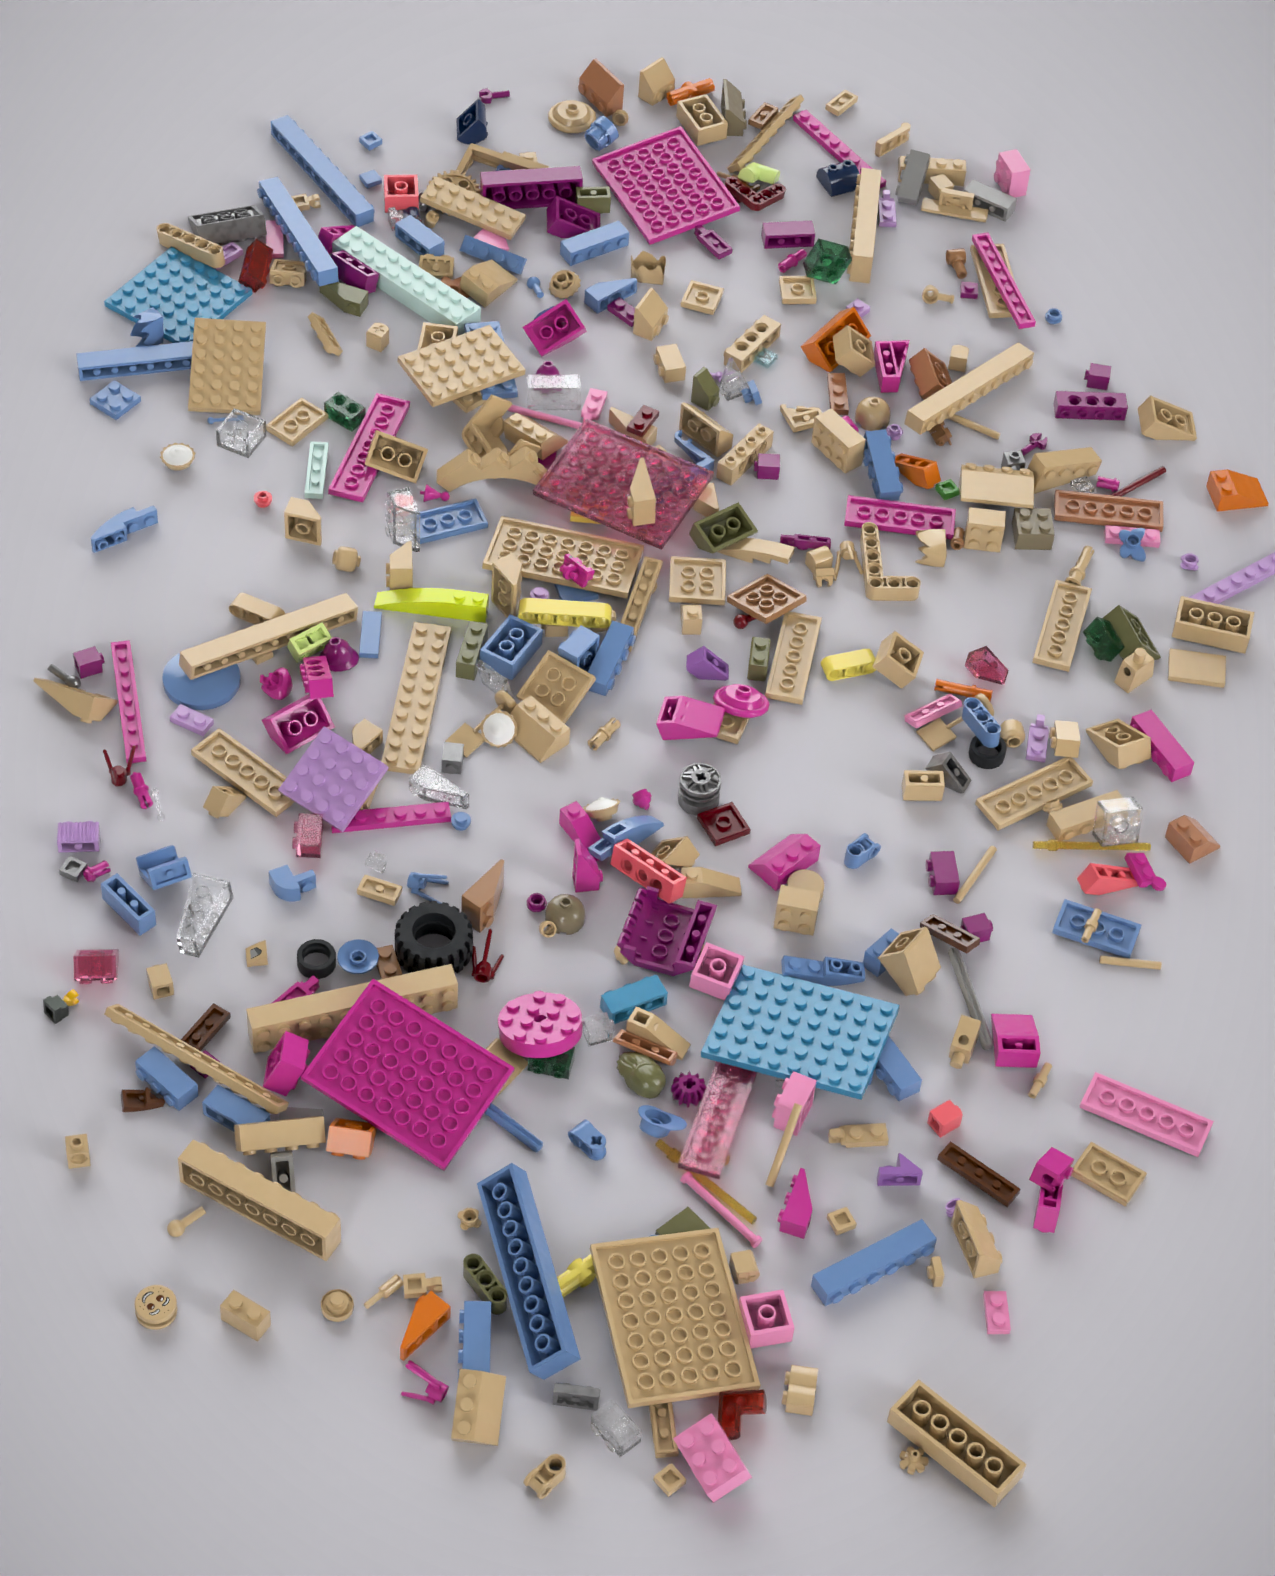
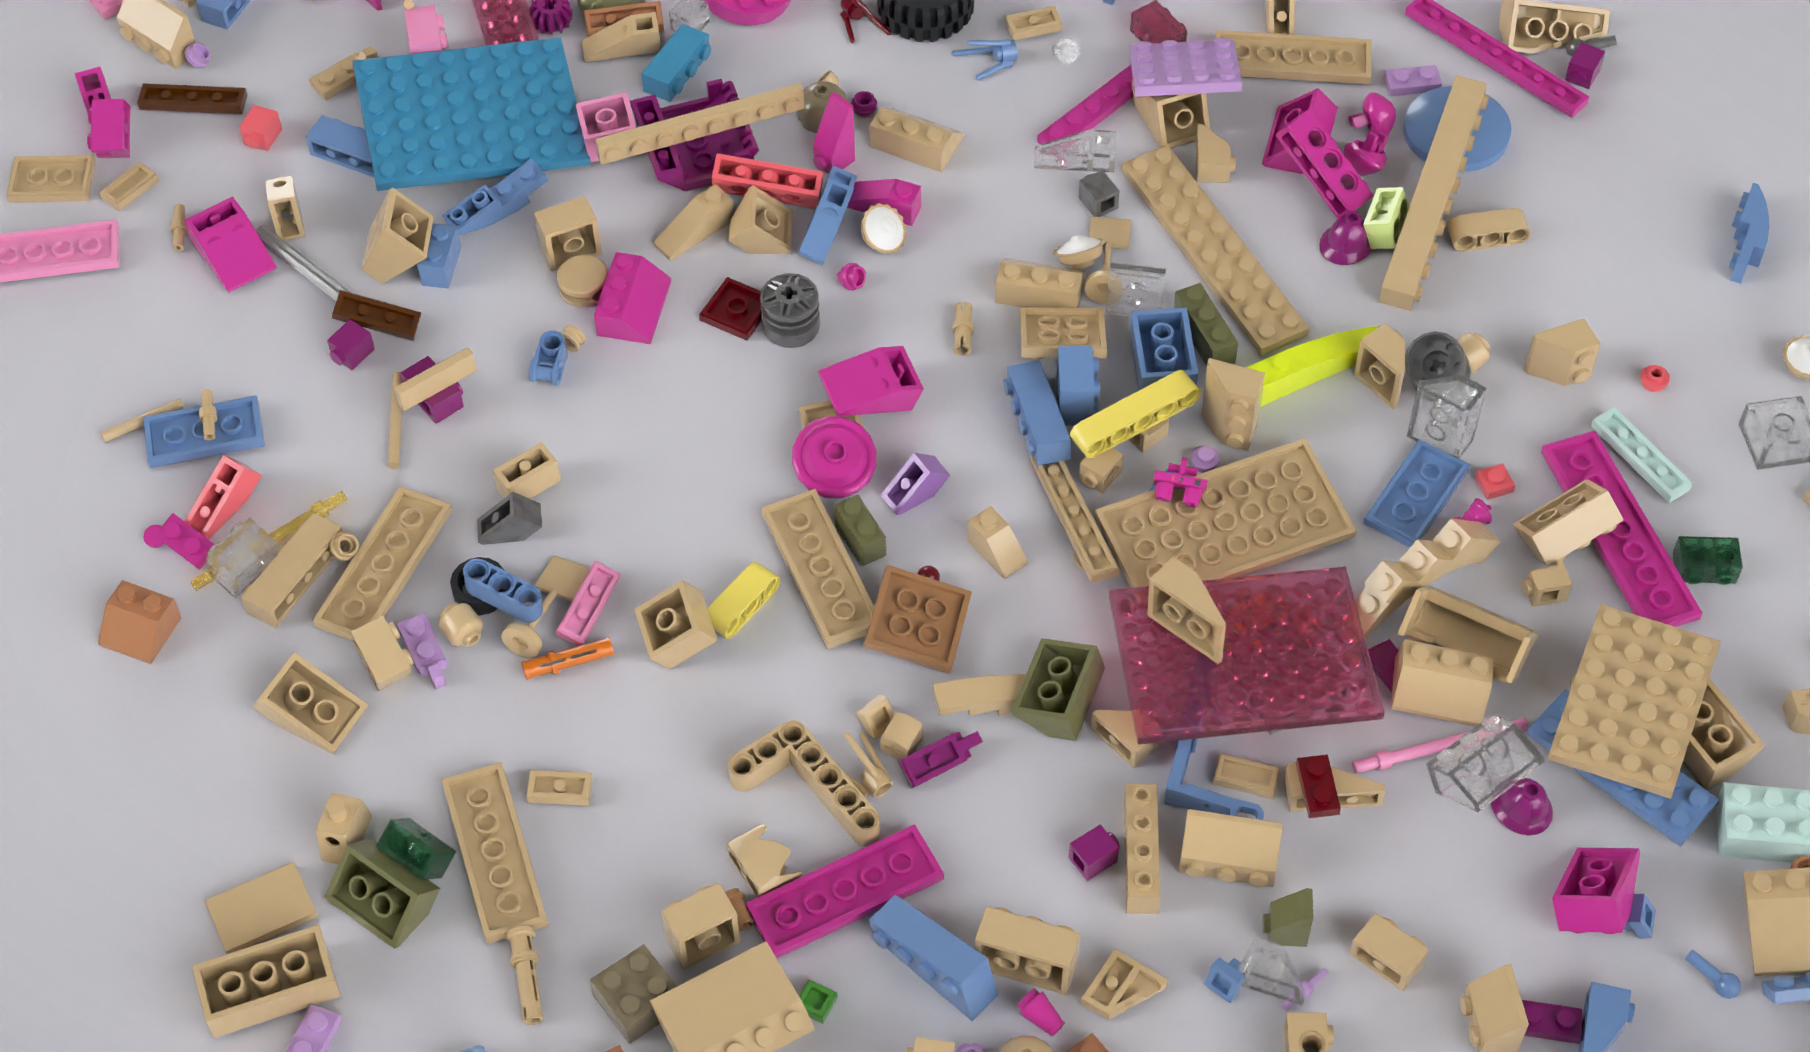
camera: 150 degrees right, 5 degrees up
(242, 703) = (1377, 114): none -> dark pink piece
(296, 422) = (1751, 513): tan tile -> none
(370, 634) = (1342, 288): medium blue tile -> none
(376, 548) = (1435, 351): none -> flat silver wheel
(435, 443) = (1547, 585): none -> tan brick
(460, 821) = (1024, 140): medium blue plate -> none
(483, 897) = (911, 55): medium nougat slope -> none
(525, 859) = (913, 138): none -> tan slope
(564, 284) = (1679, 1001): tan piece -> none
(593, 404) = (1421, 802): bright pink hinge -> none
(667, 911) = (700, 123): none -> tan plate
(697, 580) = (1032, 602): tan plate -> none
(838, 857) = (573, 337): none -> tan bush
(903, 1174) = (273, 54): medium lavender slope -> none
(918, 470) = (884, 994): orange slope -> none
(944, 853) = (435, 379): none -> tan tile
(986, 666) = (558, 708): clear pink slope -> none
(1009, 634) = (559, 787): none -> tan plate
(1057, 1135) = (129, 186): none -> tan tile
(1164, 747) = (248, 734): dark pink brick -> none

